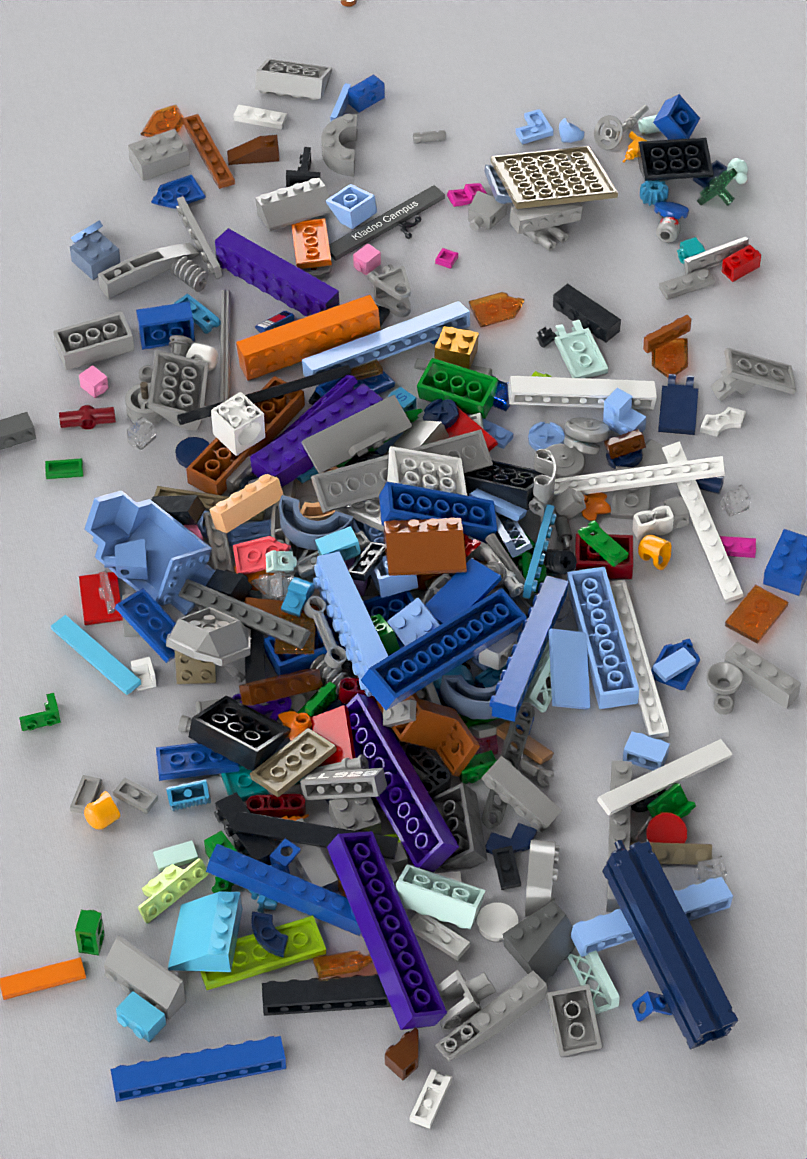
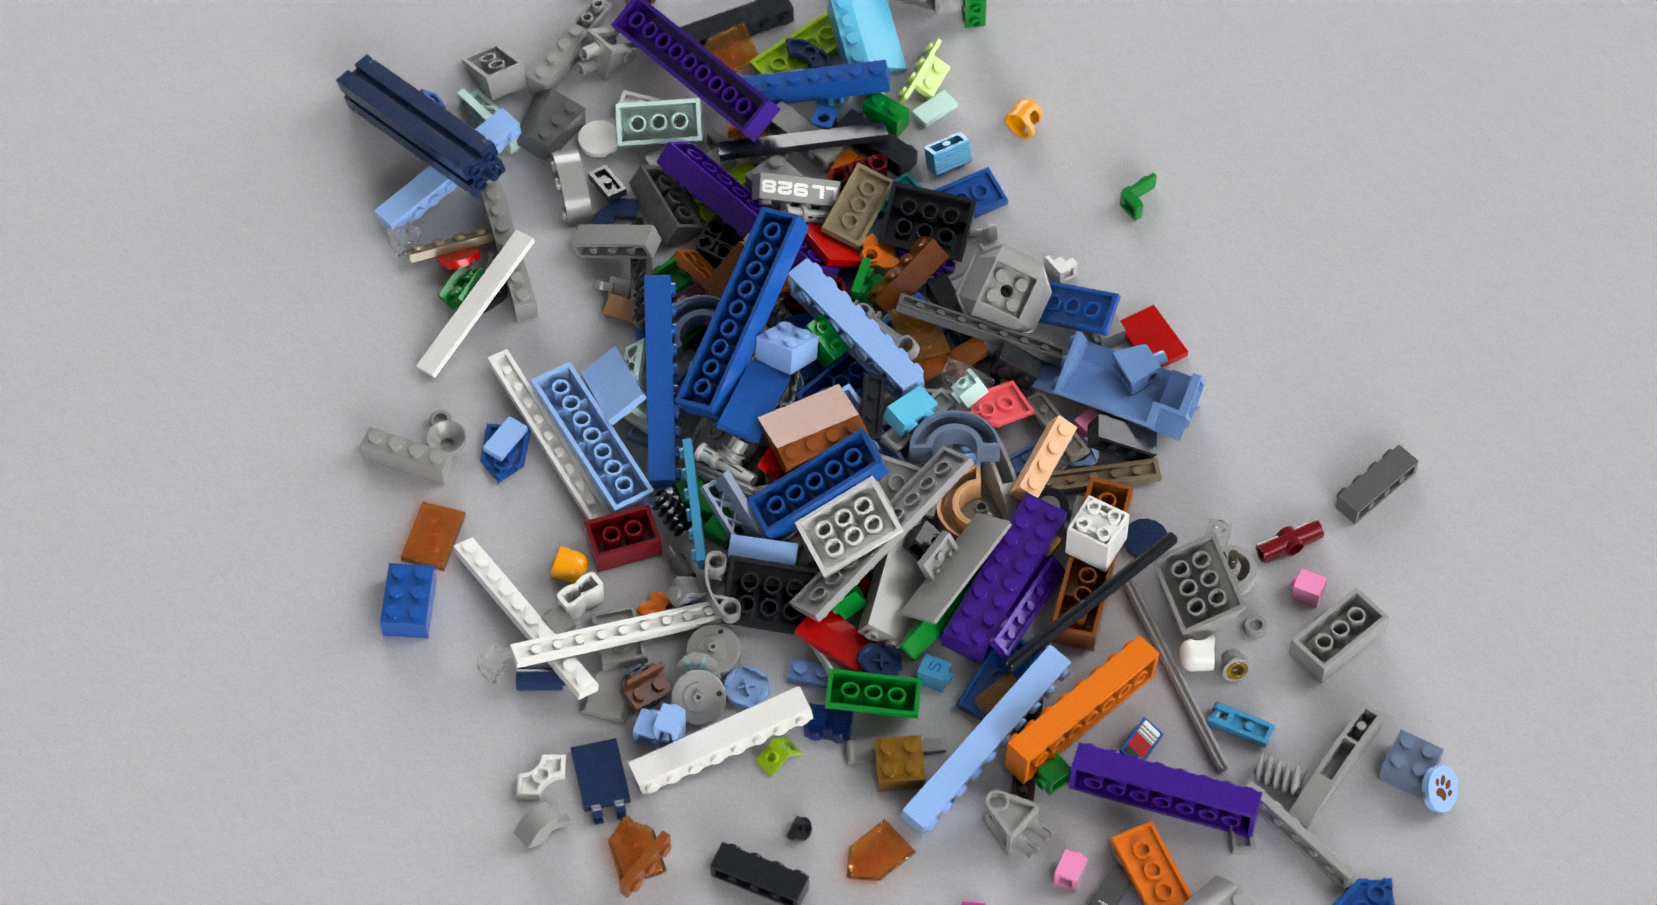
camera: 160 degrees right, 5 degrees up
(64, 468) = (1279, 476): green tile -> none
(86, 793) = (1052, 140): light grey tile -> none
(96, 655) = (1123, 275): medium azure tile -> none
(105, 592) = (1144, 330): clear plate -> none
(135, 795) = (1002, 148): light grey plate -> none
(162, 322) = (1264, 677): blue brick -> none
(298, 594) = (931, 357): dark azure brick -> none
(580, 351) = (748, 819): light aqua tile -> none
(603, 543) = (624, 530): green plate -> none
(646, 751) = (506, 335): light blue brick -> none
(739, 546) = (477, 612): dark pink plate -> none
(760, 370) = (512, 840): light grey tile -> none

